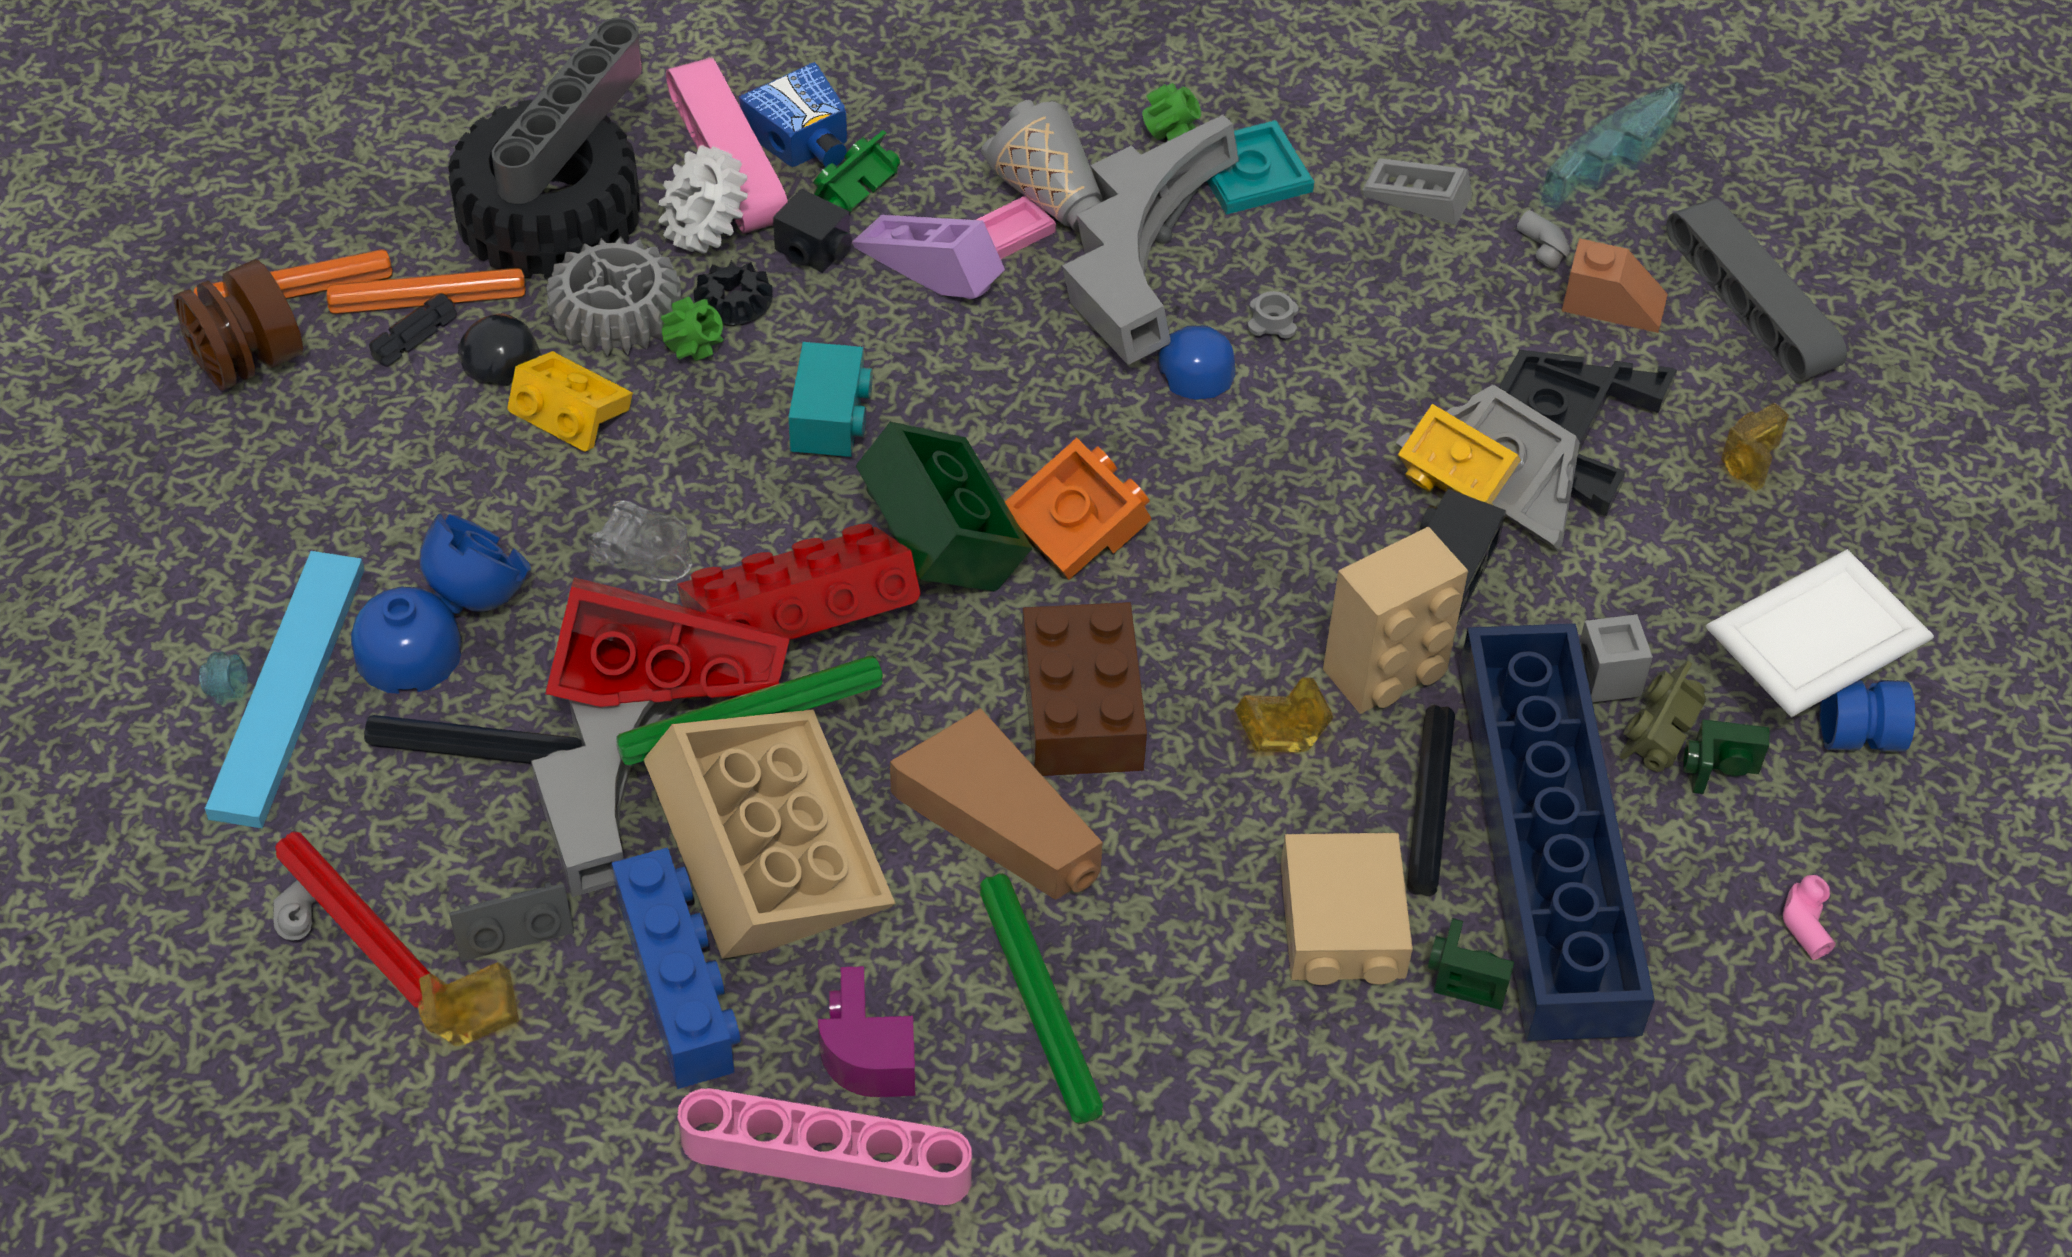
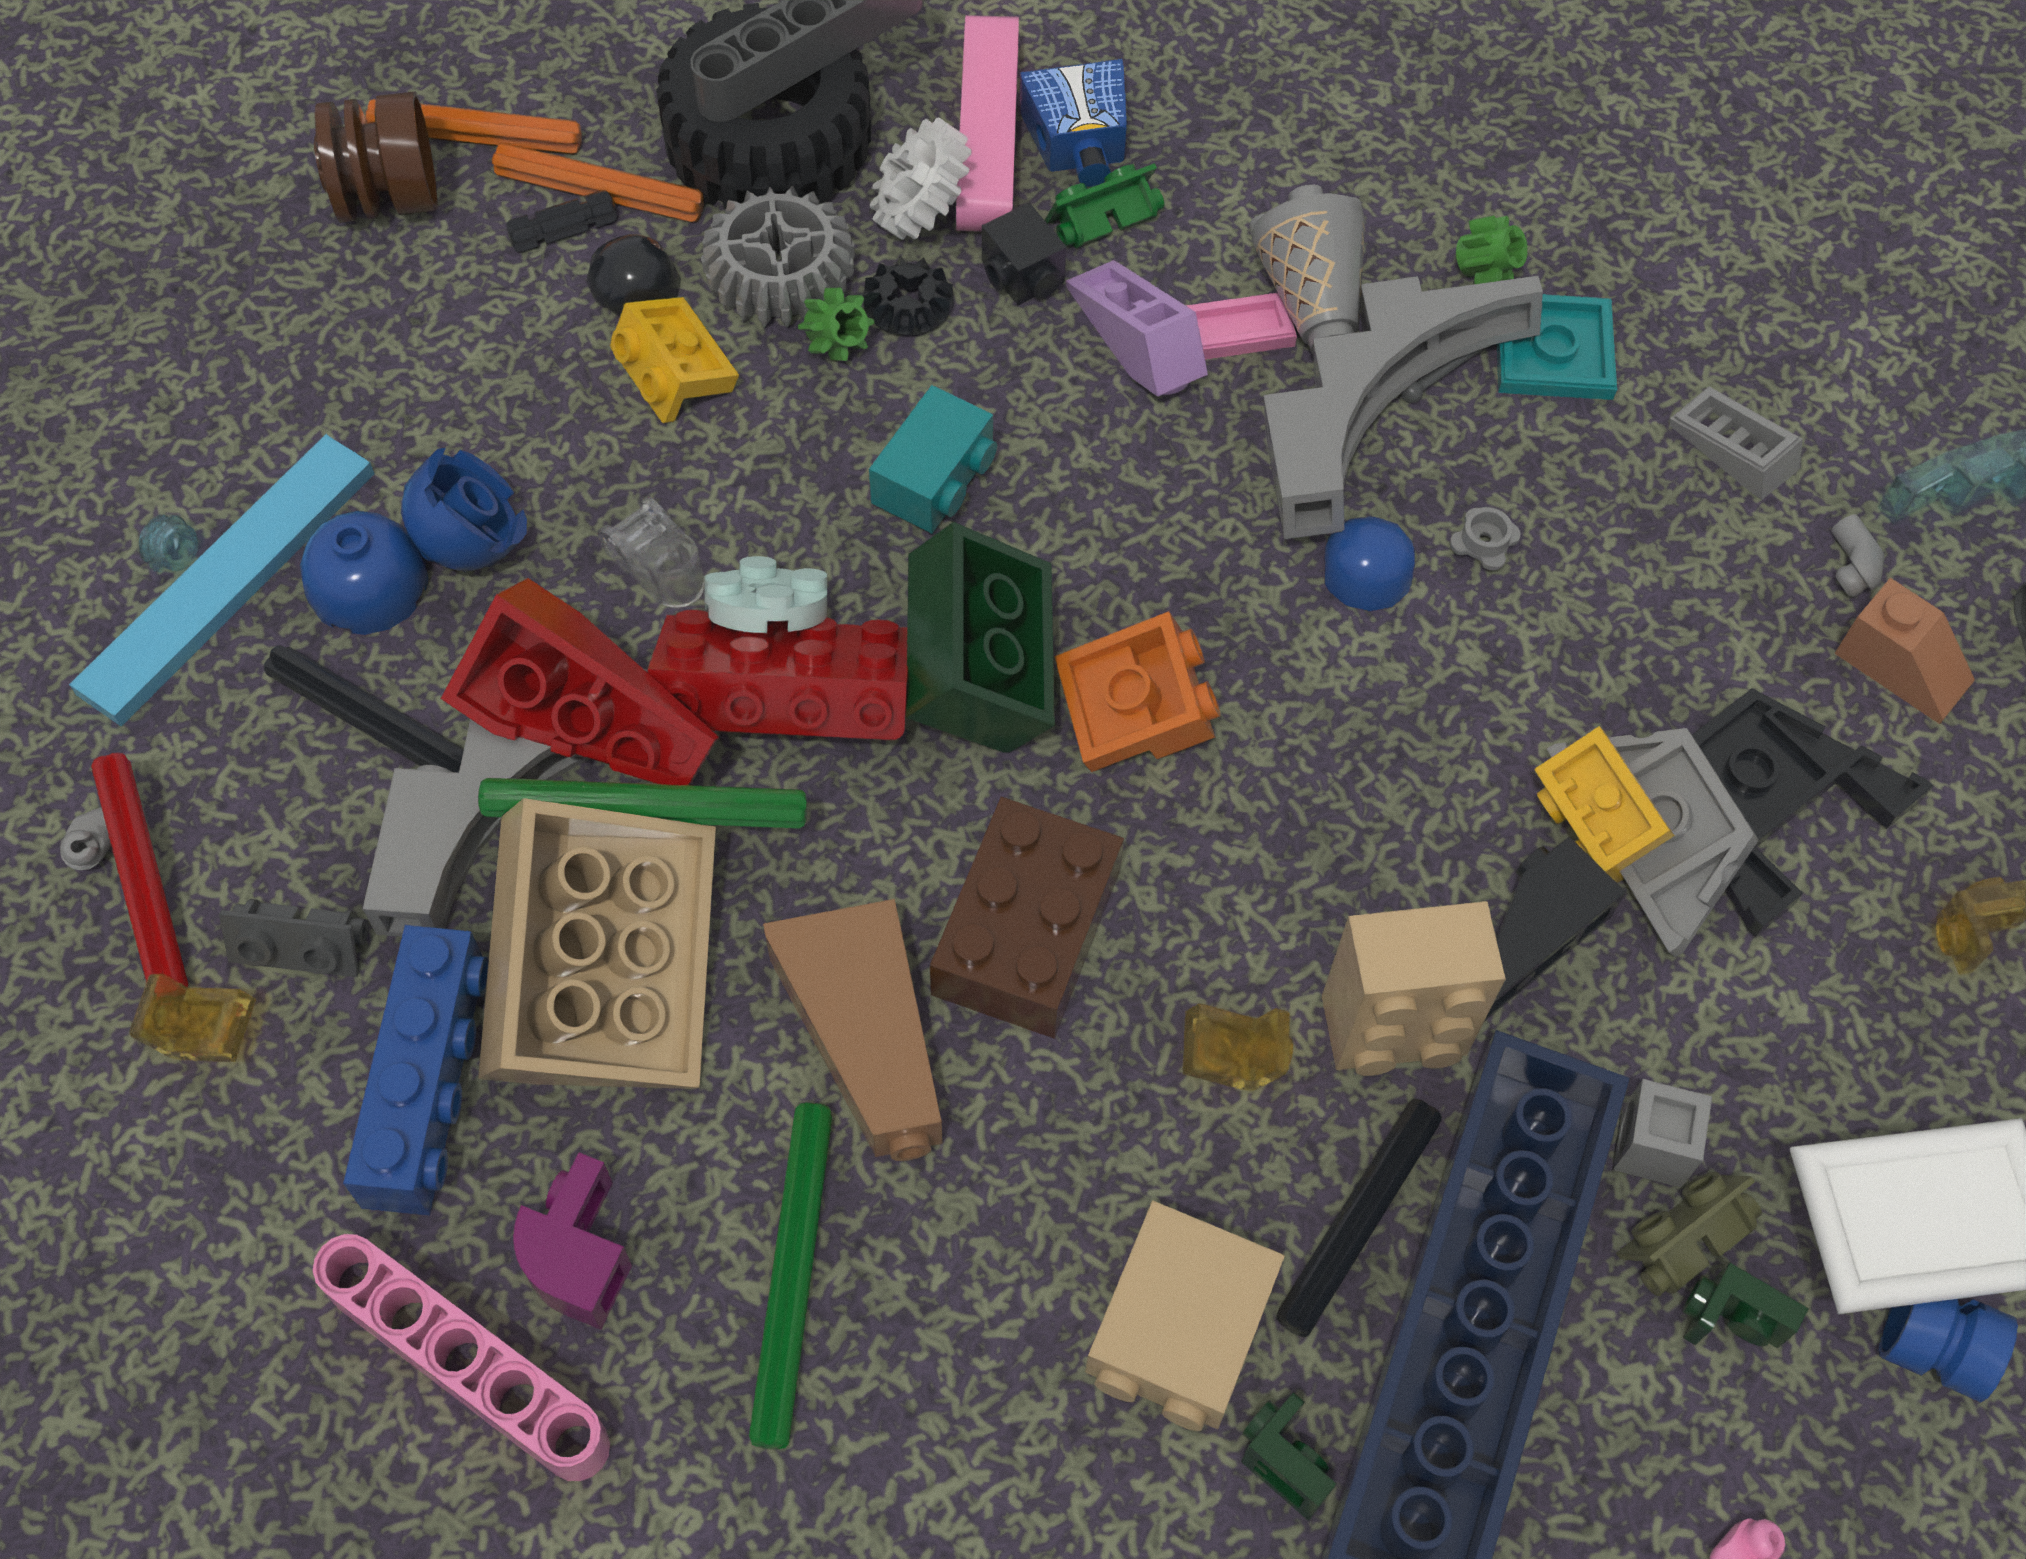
camera: 25 degrees right, 10 degrees up
(754, 541) = (764, 593): none -> light aqua plate

